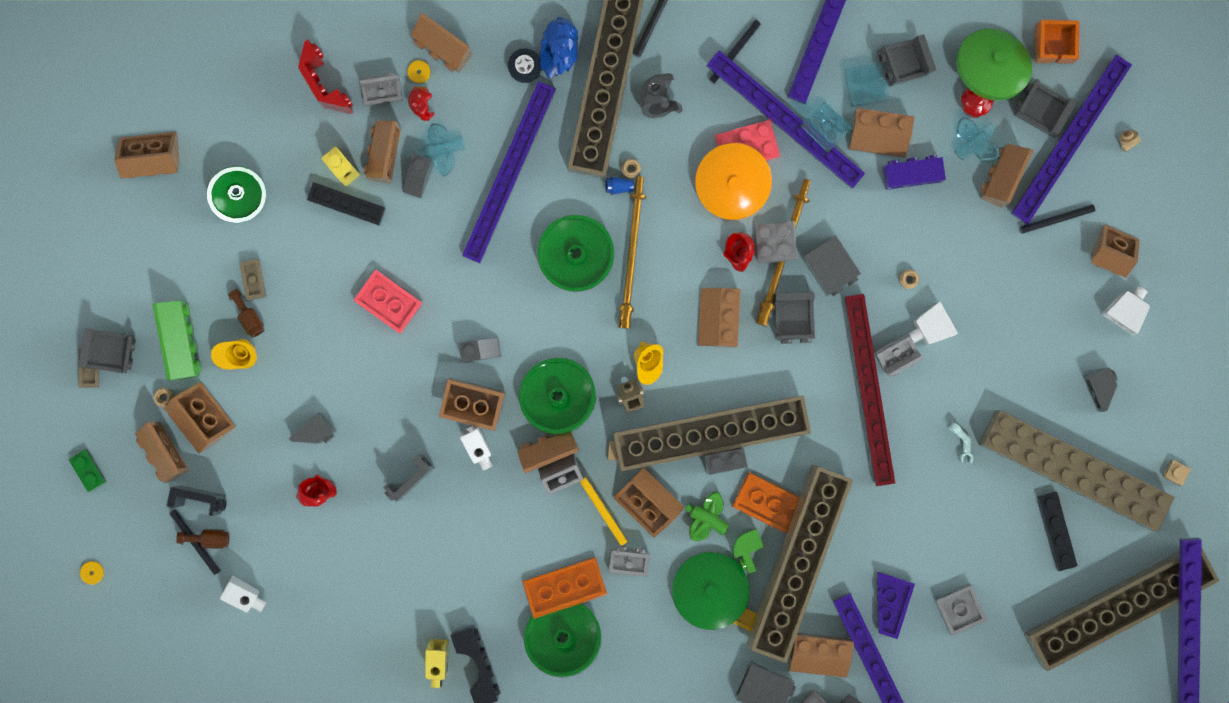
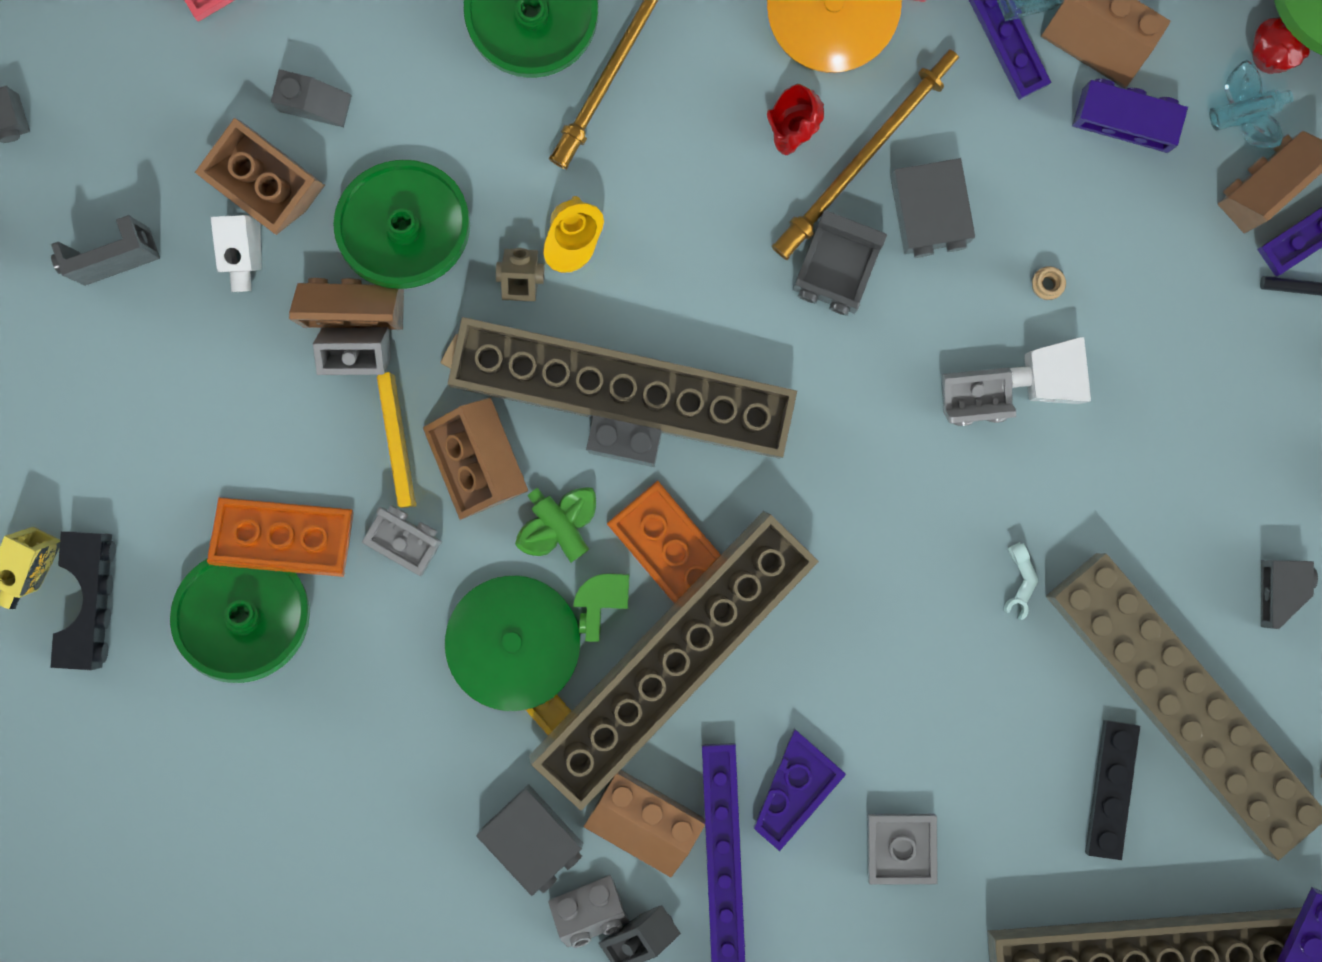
camera: 20 degrees right, 0 degrees up
(719, 317) = (717, 212): medium nougat slope -> none
(776, 242) = (860, 130): light grey plate -> none
(869, 390) = (908, 432): dark red plate -> none

